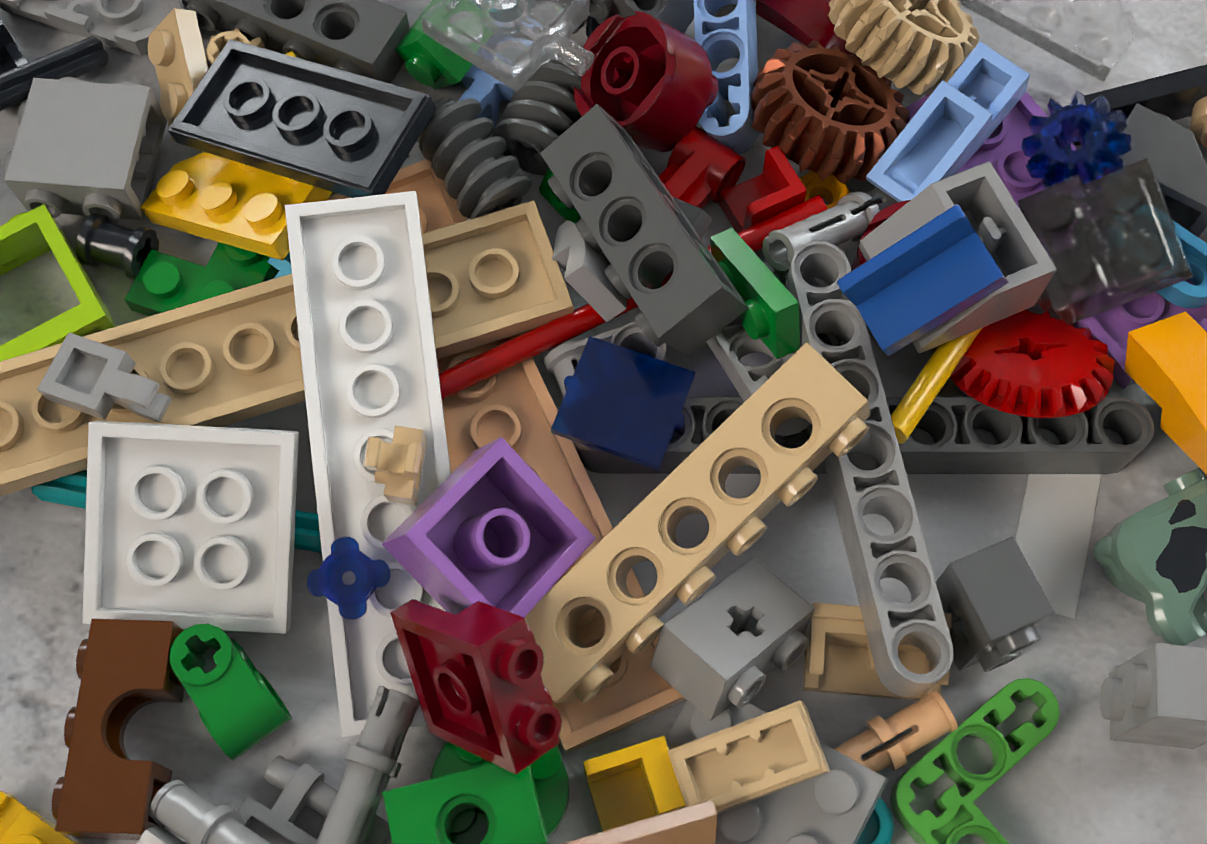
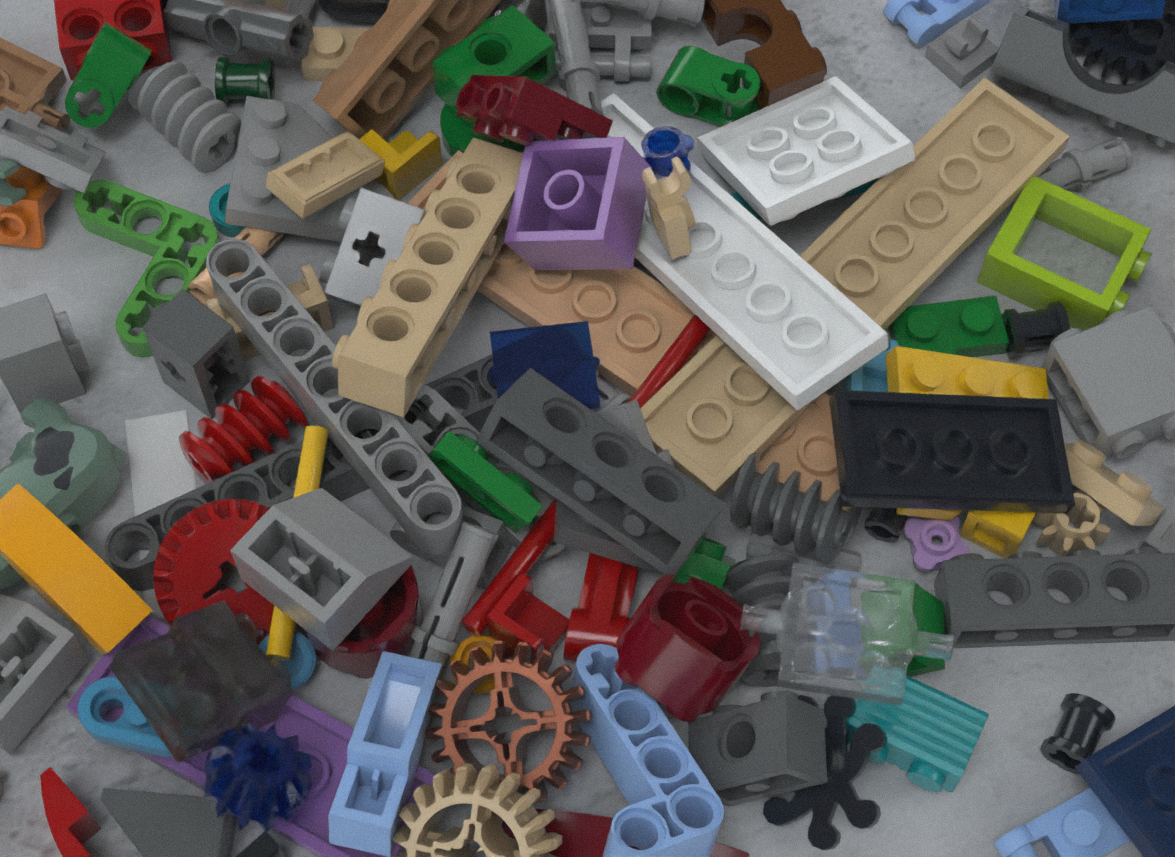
camera: 150 degrees right, 5 degrees down
(97, 376) = (938, 179): light grey plate -> none
(922, 280) = (336, 489): blue panel -> none
(970, 504) = (242, 429): none -> red piece

